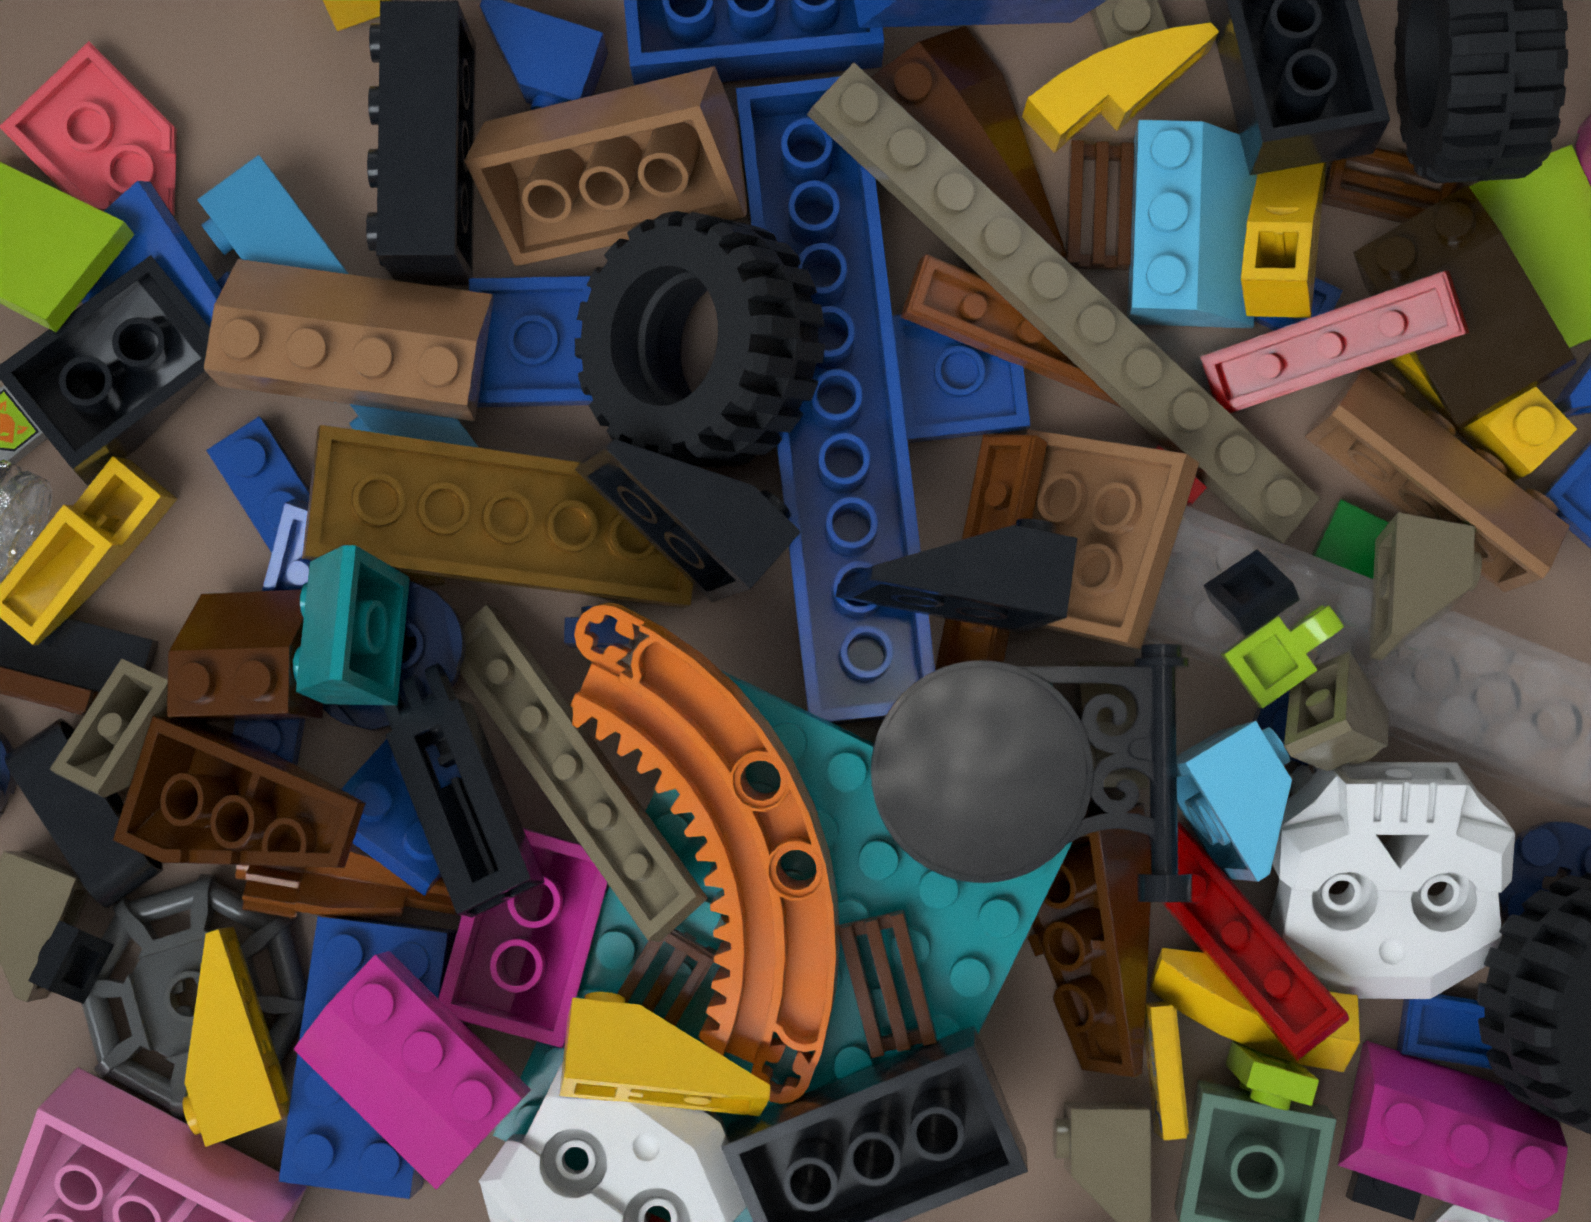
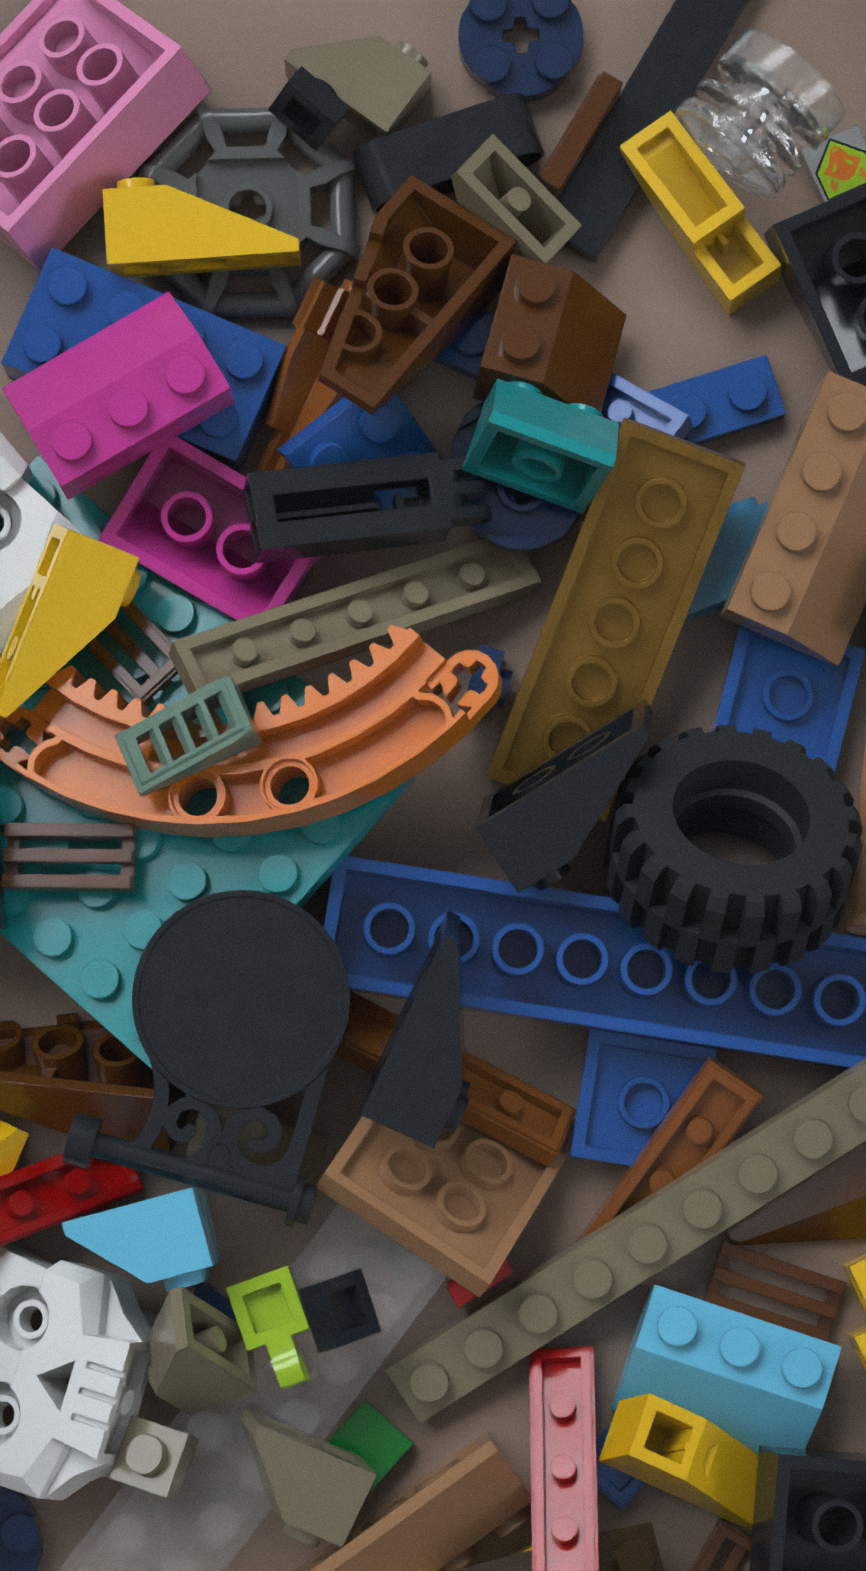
camera: 100 degrees right, 0 degrees up
(704, 893) = (219, 747): none -> sand green slope
(1442, 733) = (153, 1458): none -> dark tan plate

